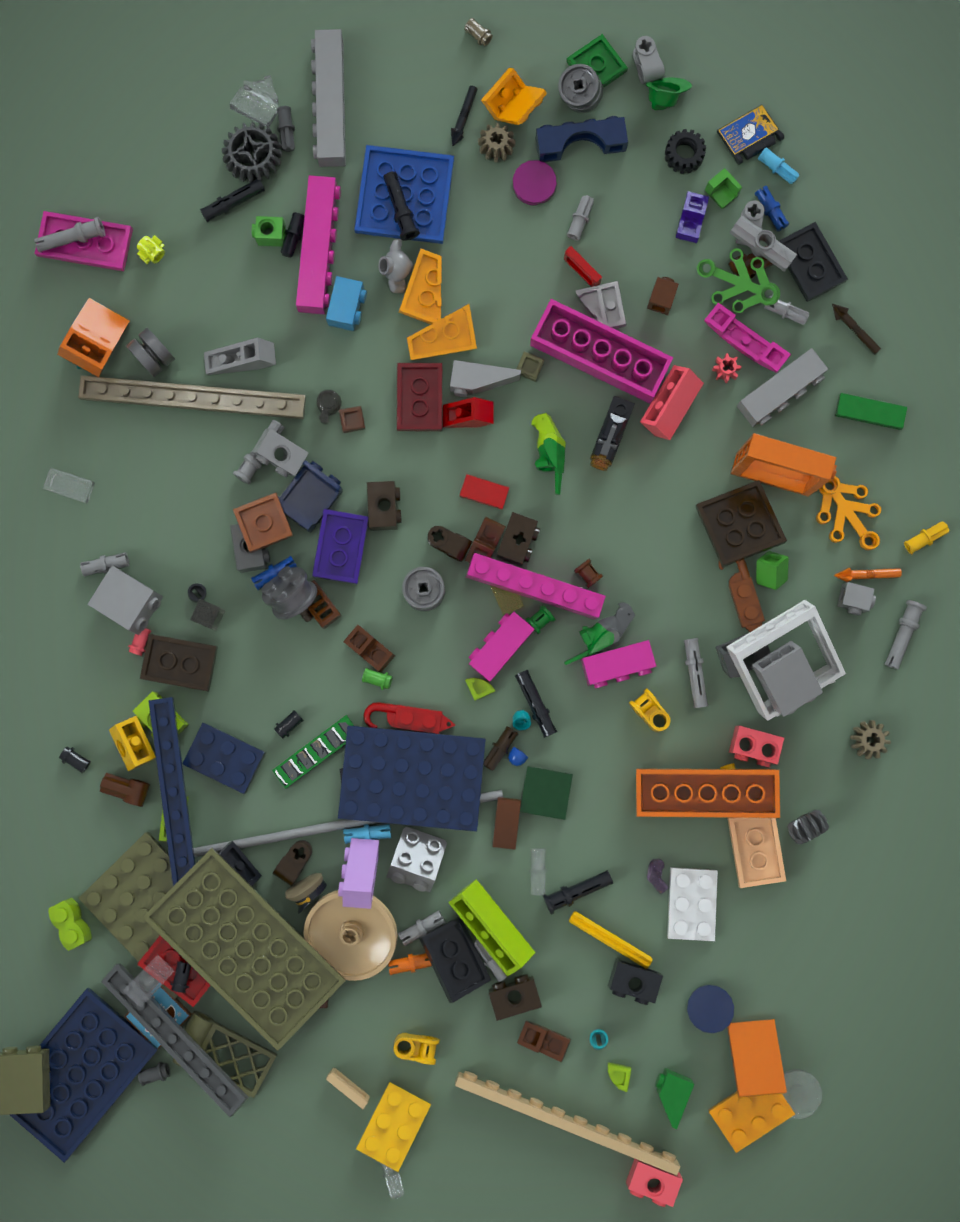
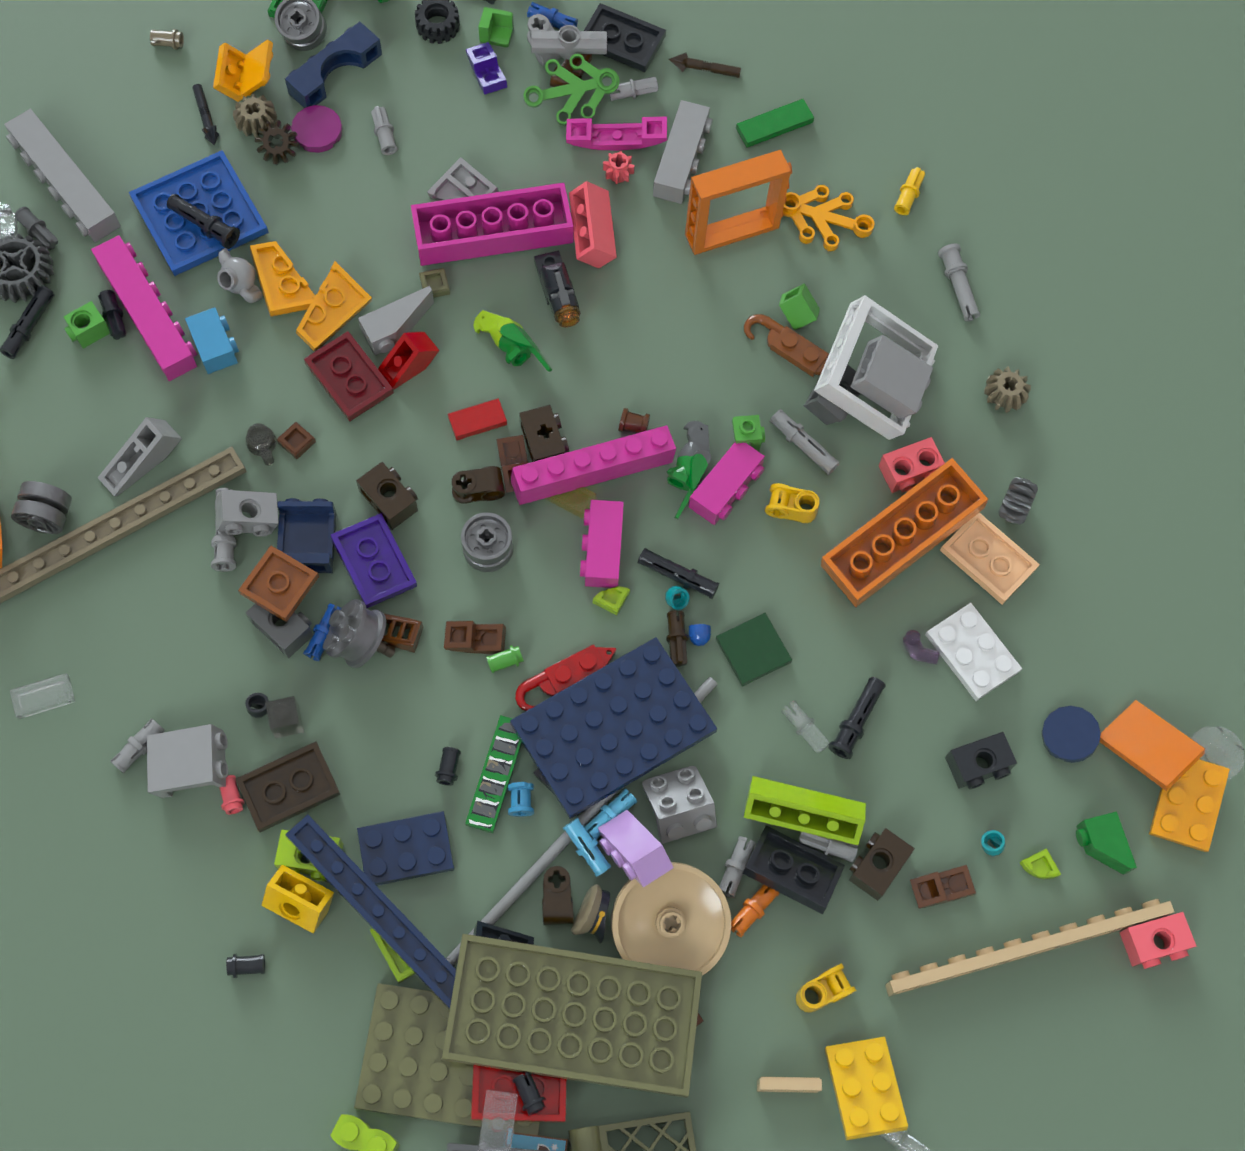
camera: 40 degrees left, 15 degrees down
(131, 790) = (331, 952): reddish brown piece -> none
(318, 781) = (521, 799): none -> dark azure bush
(335, 844) = (575, 831): none -> medium azure pin
(496, 186) = (276, 133): none -> dark brown gear
(506, 823) = (739, 704): reddish brown slope -> none
(540, 619) = (622, 491): green bush -> none
(582, 267) = (418, 167): red tile -> none
(610, 939) = (924, 741): yellow axle -> none
(660, 639) = (748, 430): none -> bright green bracket
(663, 295) = (512, 145): reddish brown brick -> none
(741, 523) = (738, 285): dark brown plate -> none
(848, 574) = (868, 266): orange piece -> none
(856, 598) = (892, 279): light grey brick -> none

